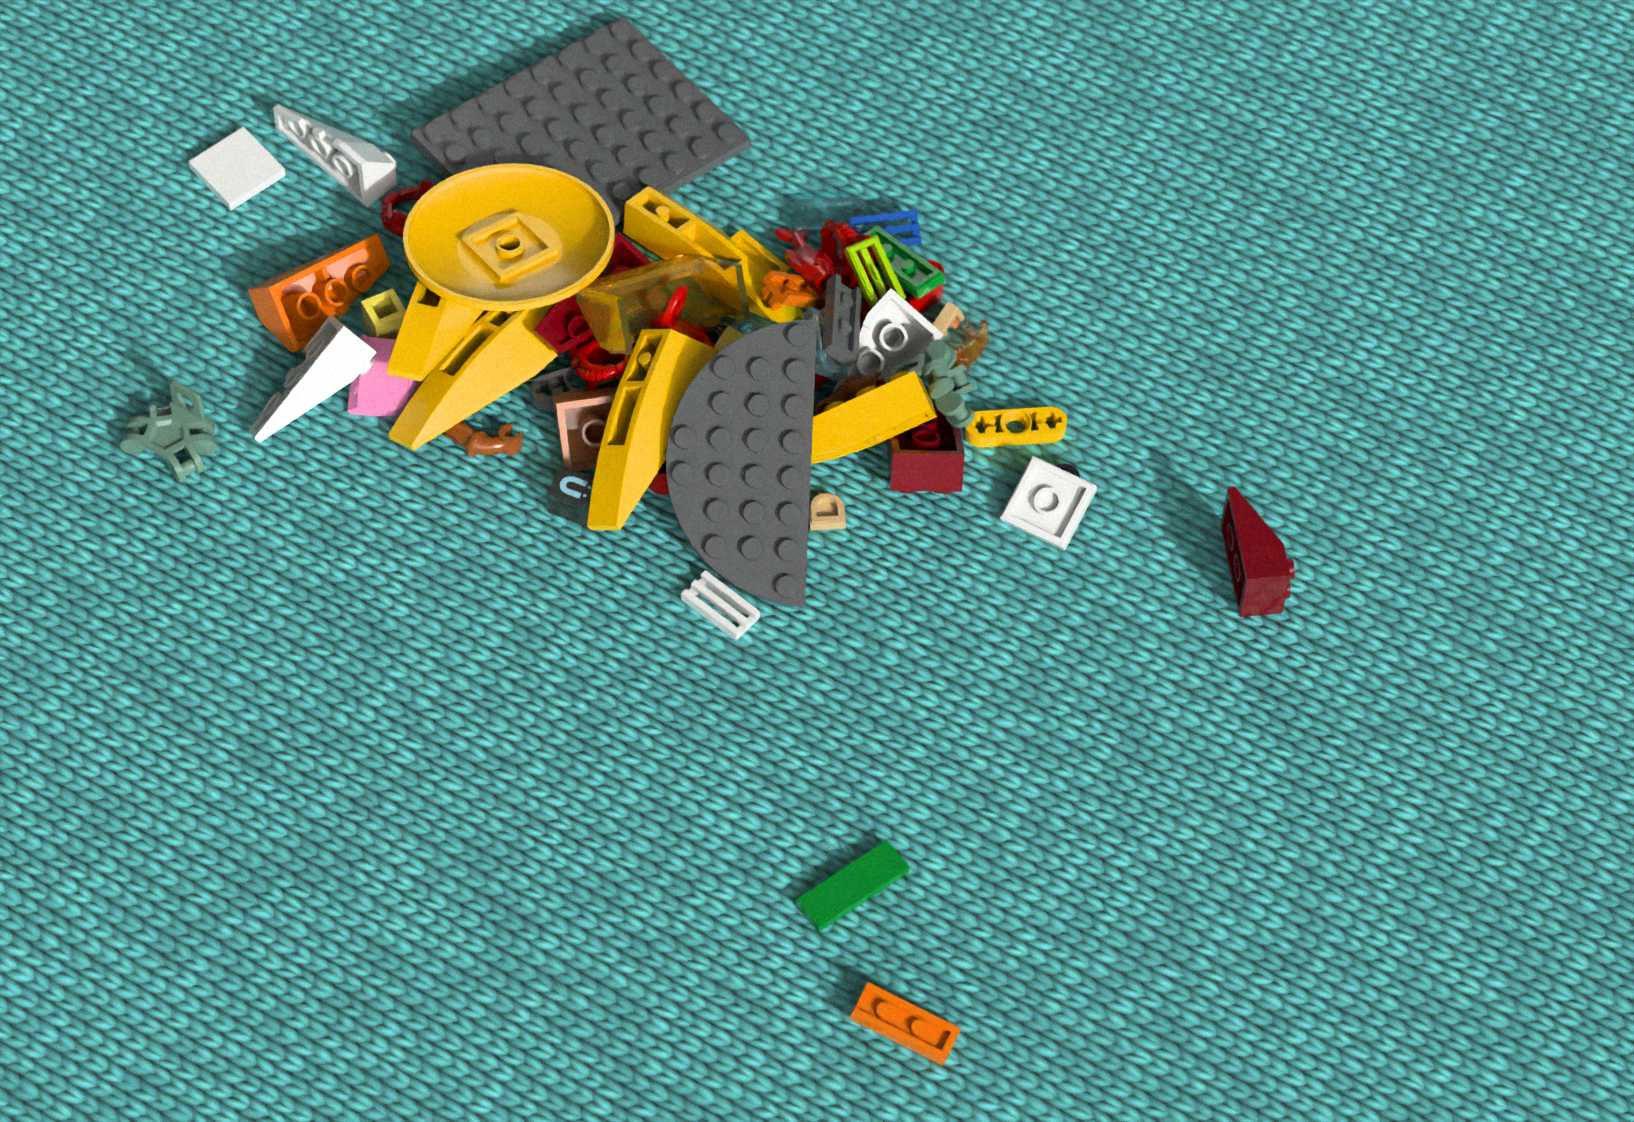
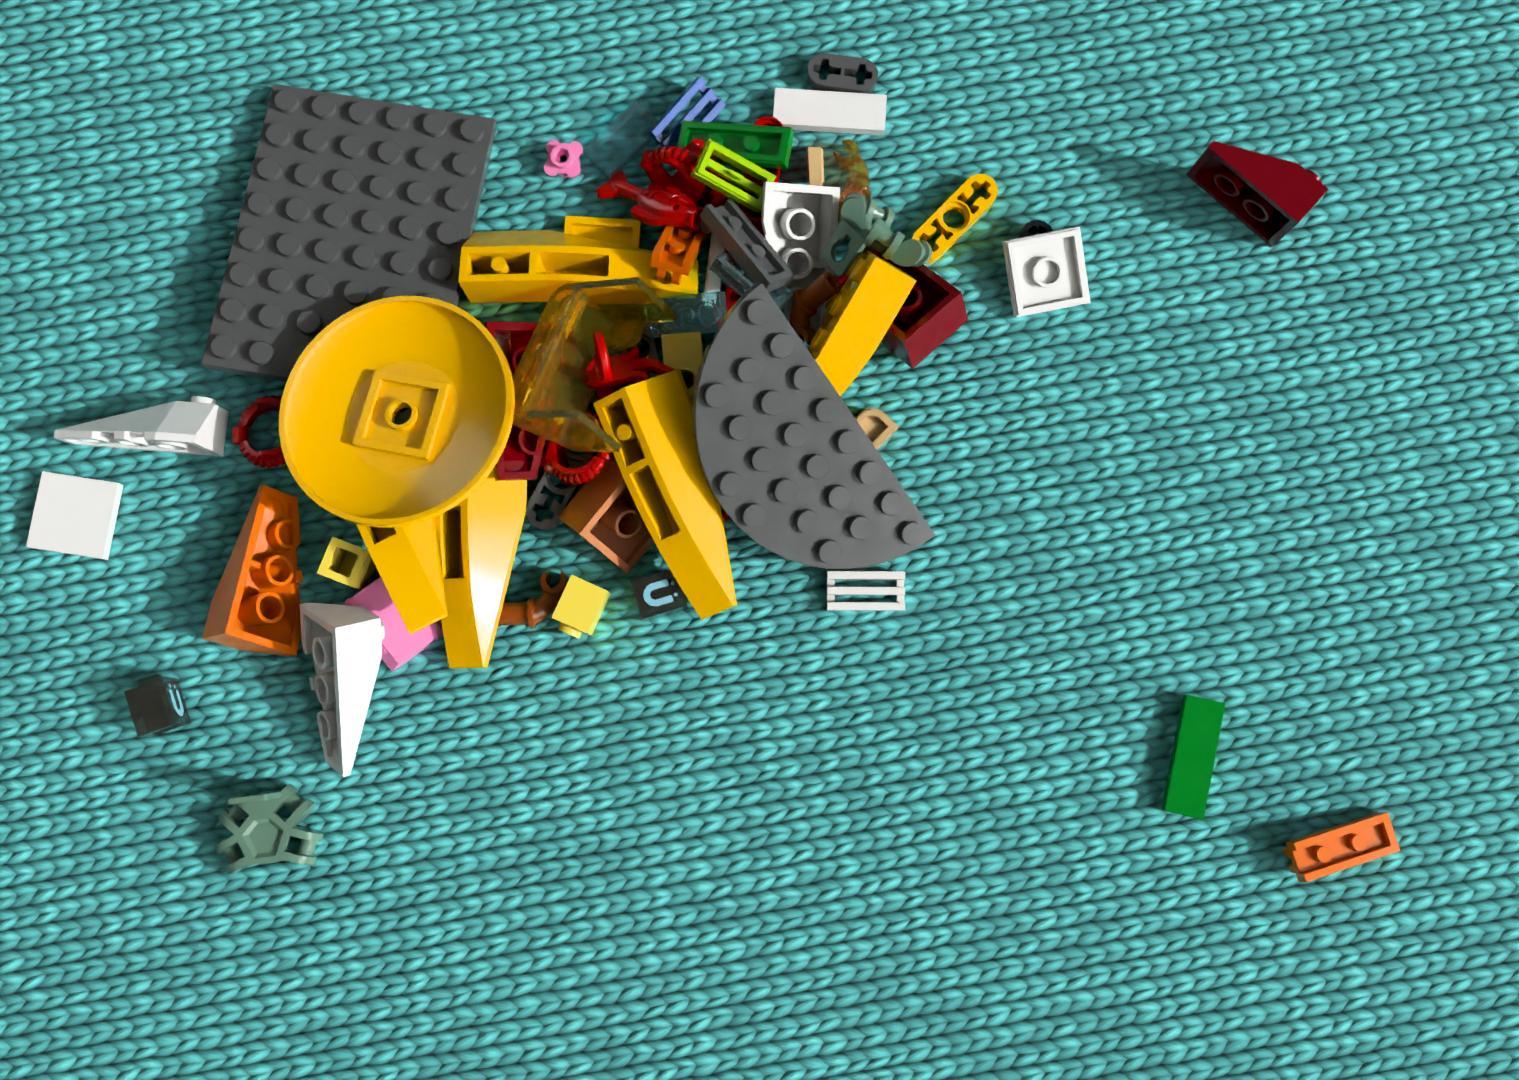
camera: 40 degrees left, 25 degrees up
(176, 312) = (157, 706): none -> clear smoke brick
(513, 462) = (580, 607): none -> light yellow brick
(771, 202) = (566, 169): none -> bright pink plate
(992, 300) = (830, 111): none -> white tile
(1025, 282) = (842, 73): none -> dark grey beam

